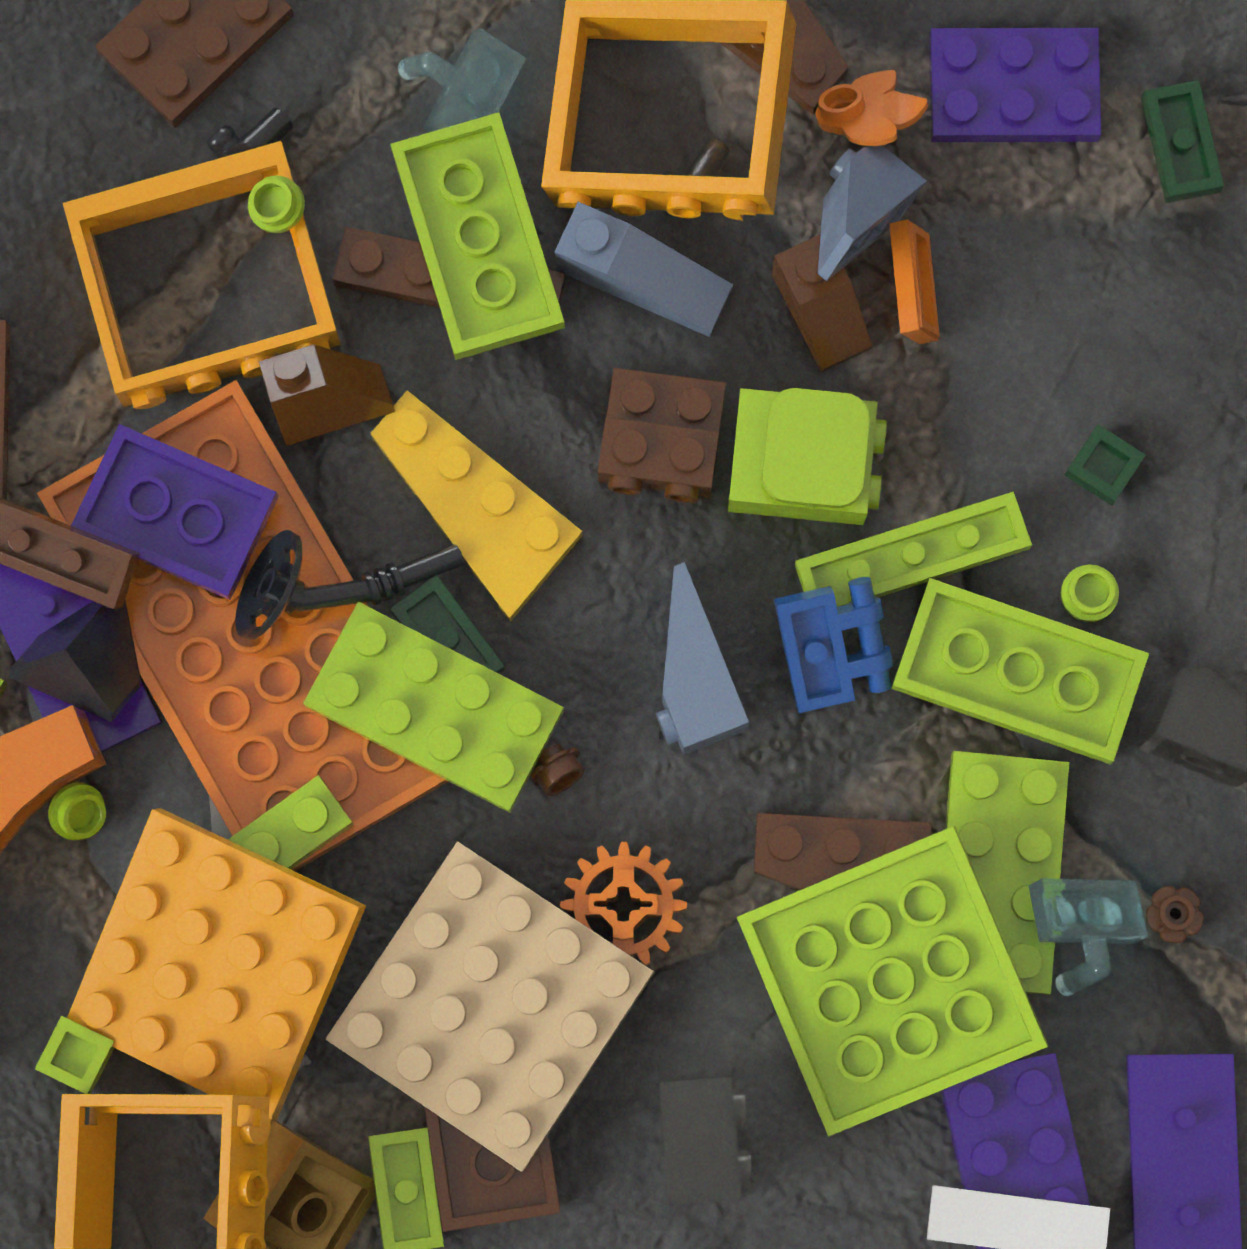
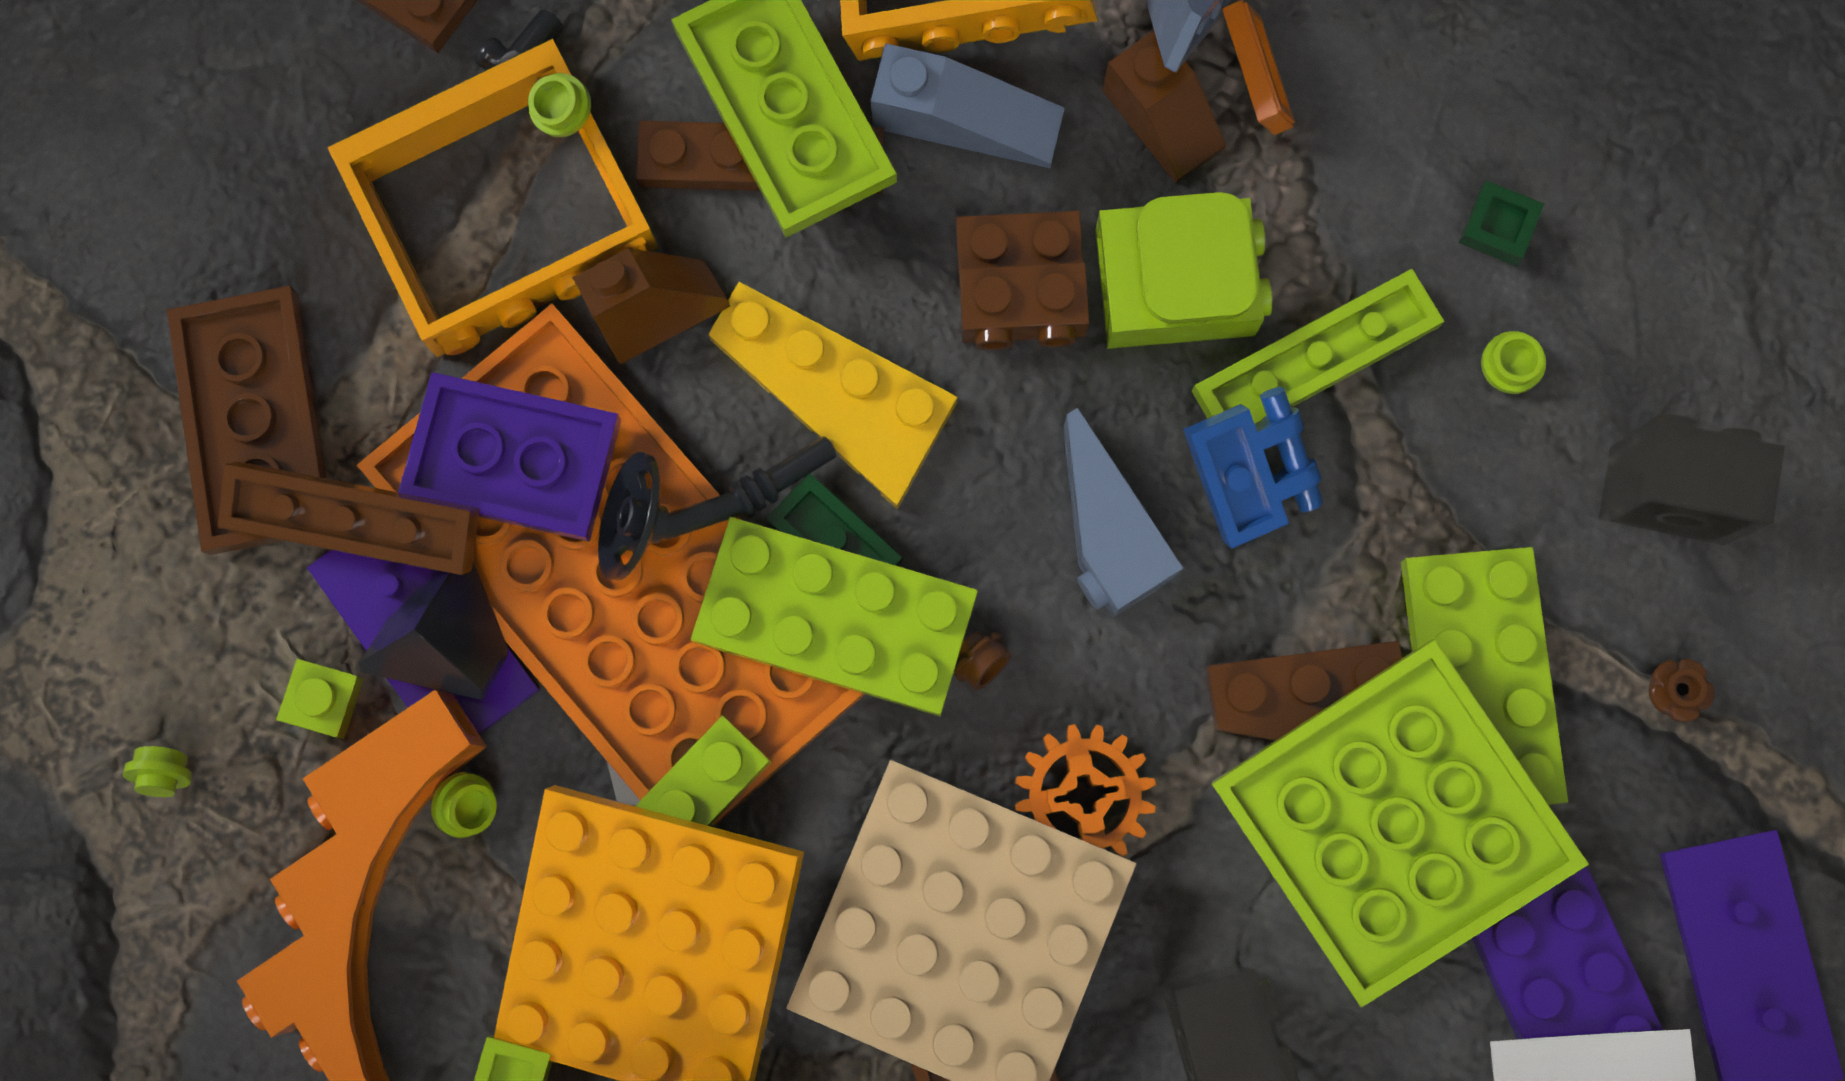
camera: 10 degrees left, 0 degrees up
(1020, 671) = (1459, 459): lime plate -> none
(1090, 915) = (1598, 708): clear light blue plate -> none

